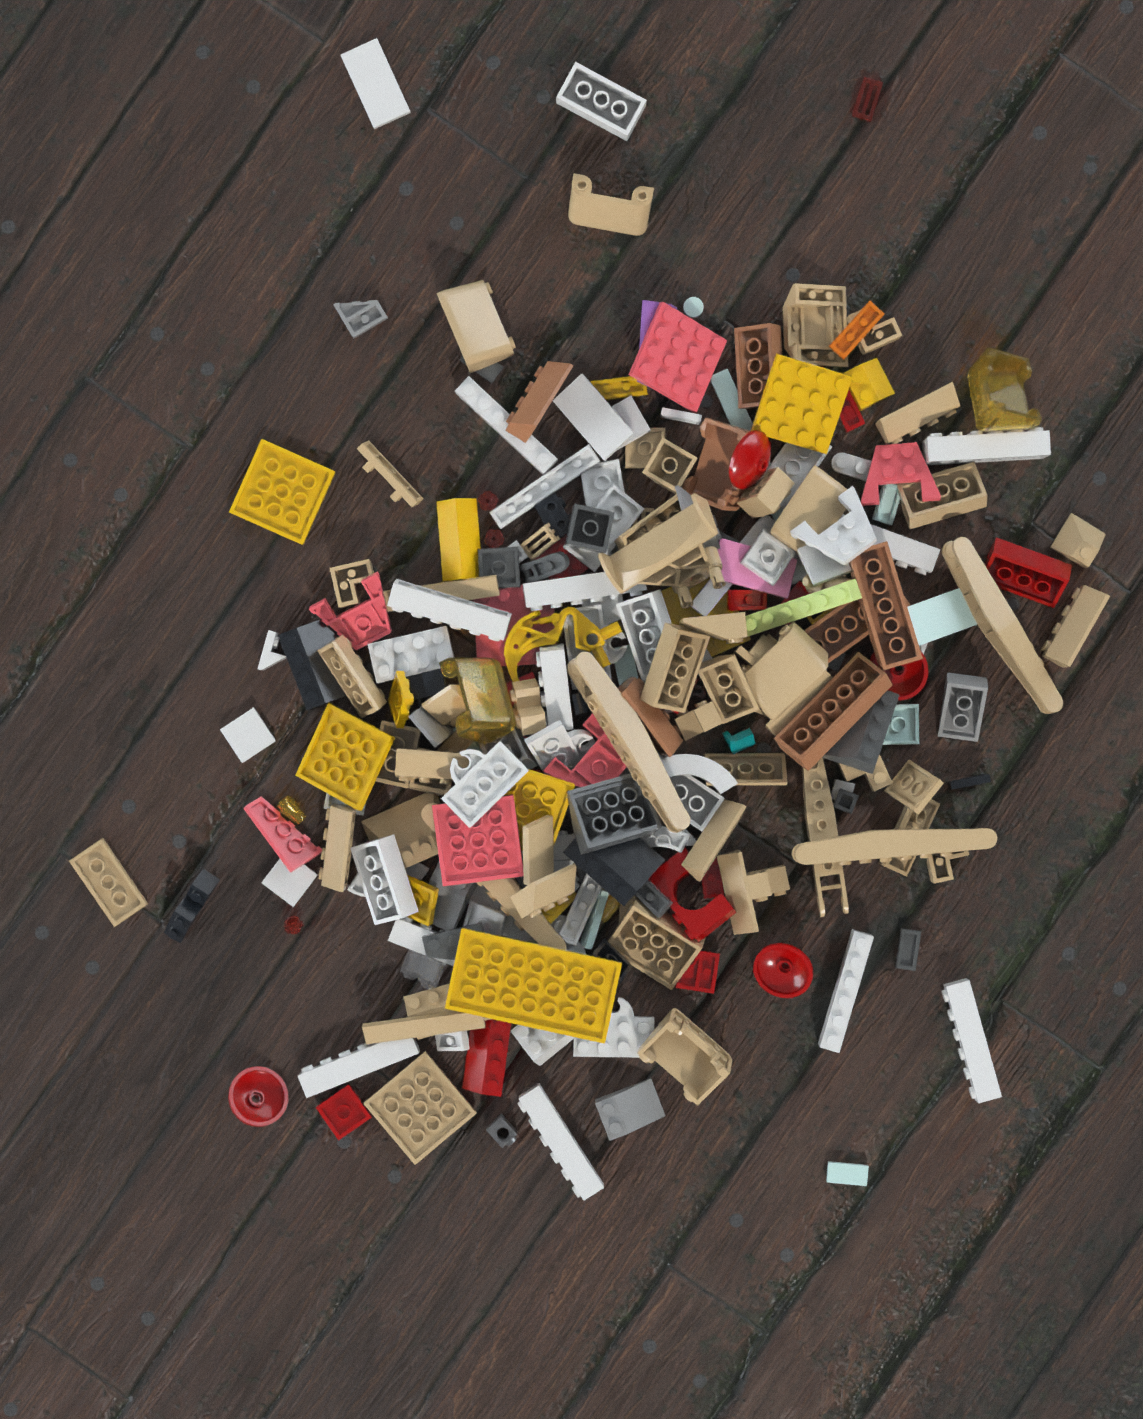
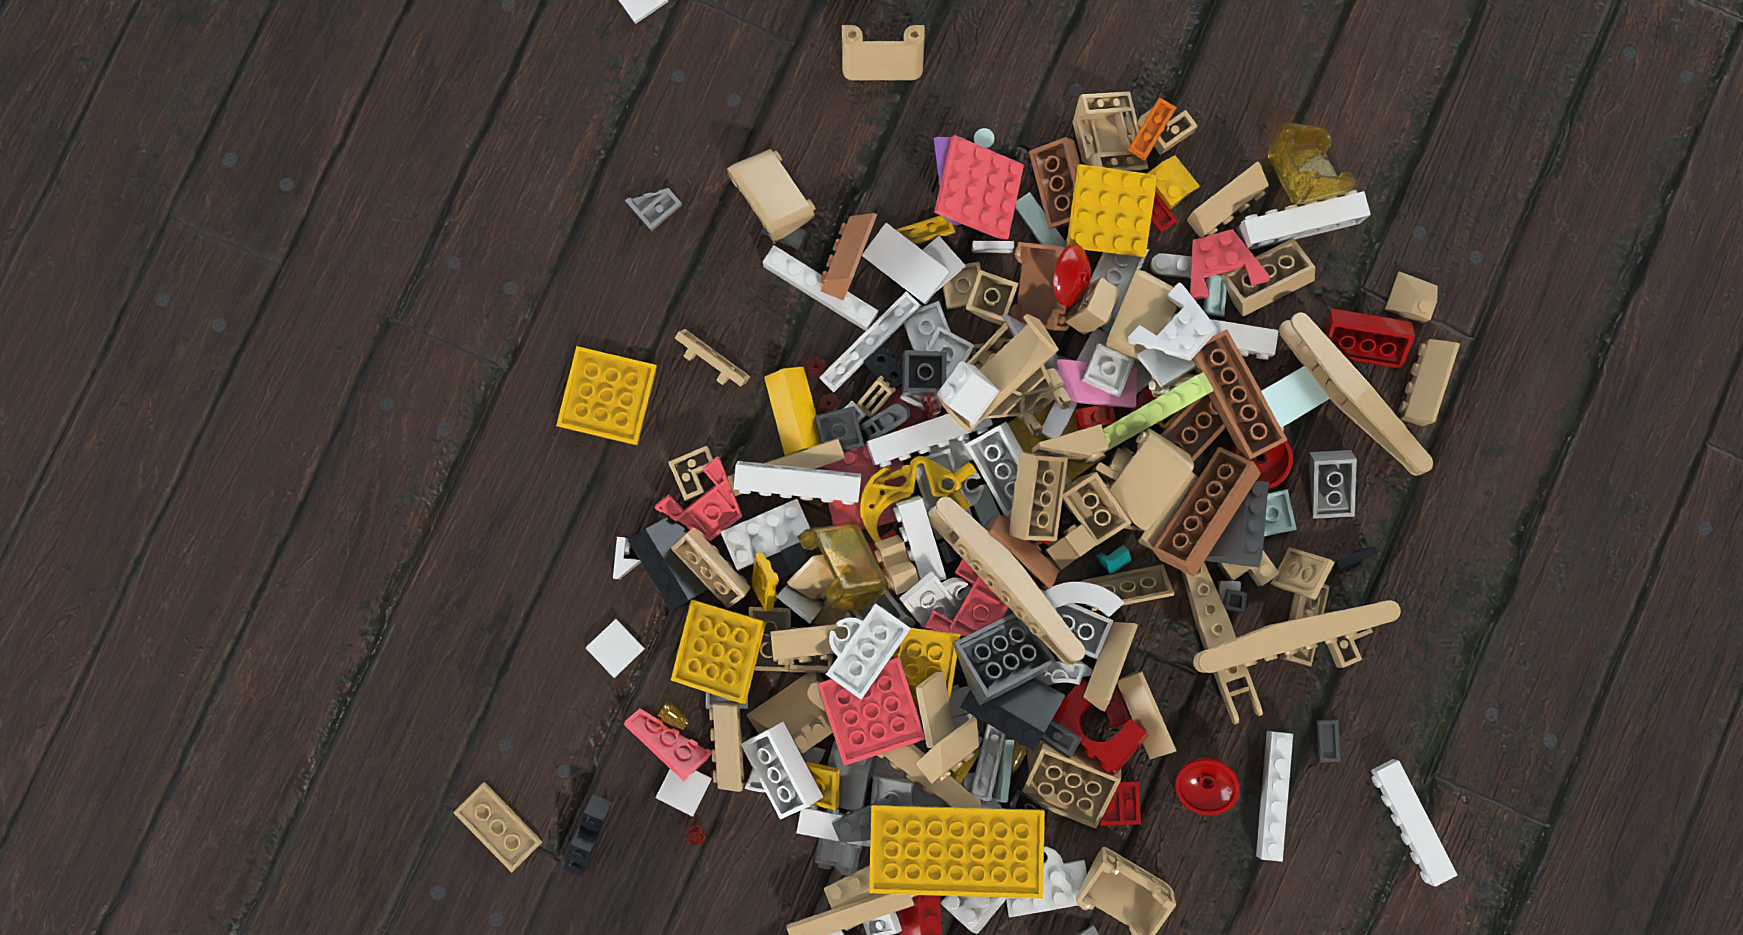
camera: 15 degrees left, 5 degrees down
(588, 561) = (931, 406): none -> clear red tile
(626, 555) = (968, 391): none -> white slope
(768, 881) = (1174, 699): tan brick -> none

